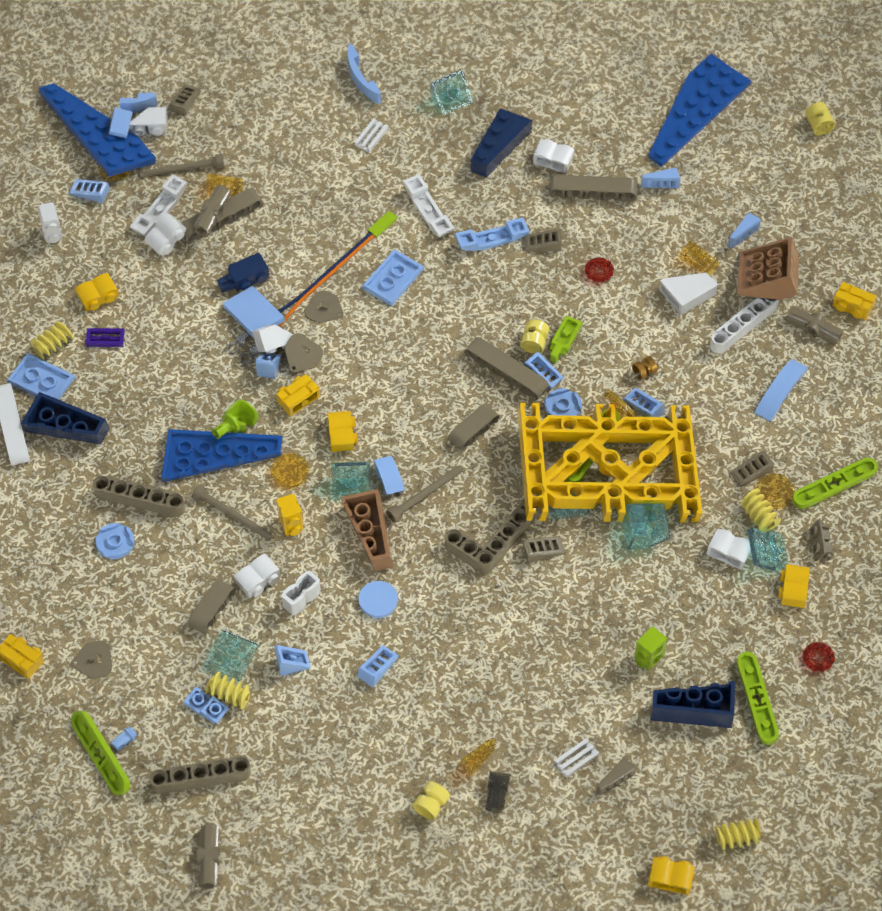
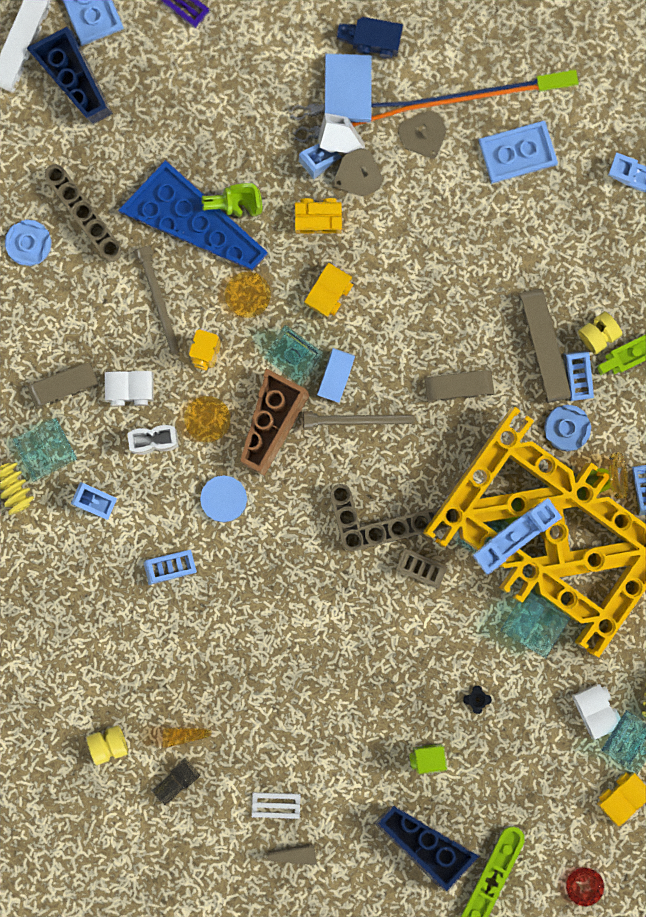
camera: 35 degrees right, 25 degrees up
(326, 560) = (207, 419): none -> clear yellow tile
(427, 207) = (617, 96): white slope -> none
(587, 470) = (516, 535): none -> light blue slope
(653, 594) = (477, 706): none -> black plate

